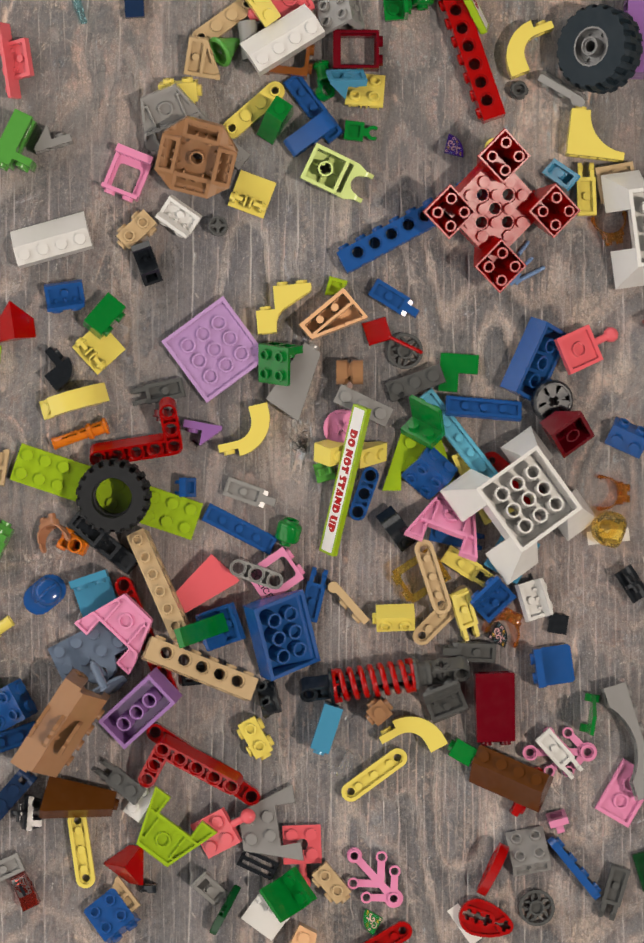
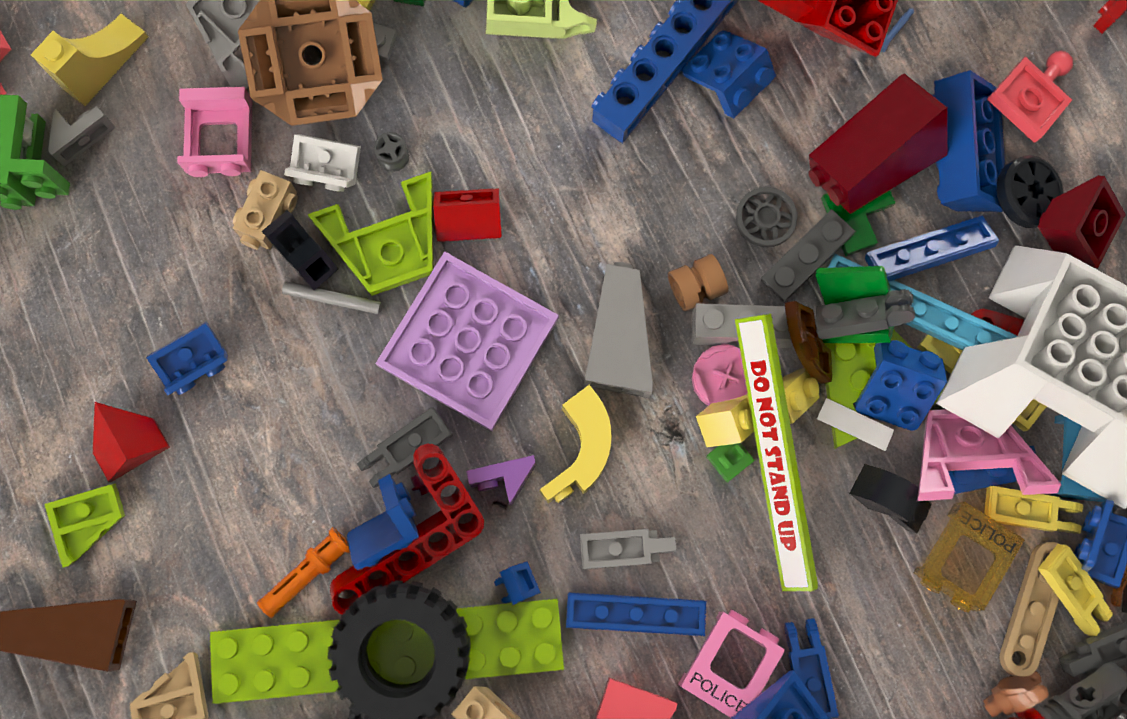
camera: 25 degrees left, 10 degrees down
(51, 240) = (134, 285): white slope -> none
(62, 373) = (233, 483): black brick -> none
(72, 103) = (89, 62): none -> light yellow arch
(74, 400) = (268, 519): light yellow arch -> none
(98, 352) = (277, 419): light yellow hinge -> none
(104, 316) = (265, 362): green brick -> none
(130, 431) = (388, 530): none -> blue bracket
(153, 294) = (332, 297): none -> light grey piece
(195, 282) = (390, 250): none -> lime wing
(244, 279) = (467, 214): none -> red panel
(251, 194) = (423, 85): light yellow hinge -> none
(266, 574) = (721, 685): light grey beam -> none
(275, 362) = (577, 316): green bracket -> none
(284, 297) = (542, 213): light yellow arch -> none
(288, 531) = (719, 582): green head -> none
(333, 316) = (633, 207): light nougat wedge -> none
(334, 285) = (612, 166): lime tile -> none
(358, 615) = (871, 658): tan plate -> none
(370, 486) = (819, 450): blue beam -> none
(378, 331) = (712, 205): red piece -> none
(389, 430) = (809, 348): none -> reddish brown tile
(392, 299) = (711, 146): blue hinge -> none
(394, 617) = (963, 648): light yellow brick -> none
(397, 482) = (855, 424): none -> white sticker
(409, 650) = (1015, 695): none -> nougat helmet
(423, 260) = (731, 69): none -> blue bracket
(423, 429) = (864, 314): none -> dark grey hinge
(432, 577) = (998, 551): tan plate -> none
(479, 342) = (881, 145): none -> dark red slope

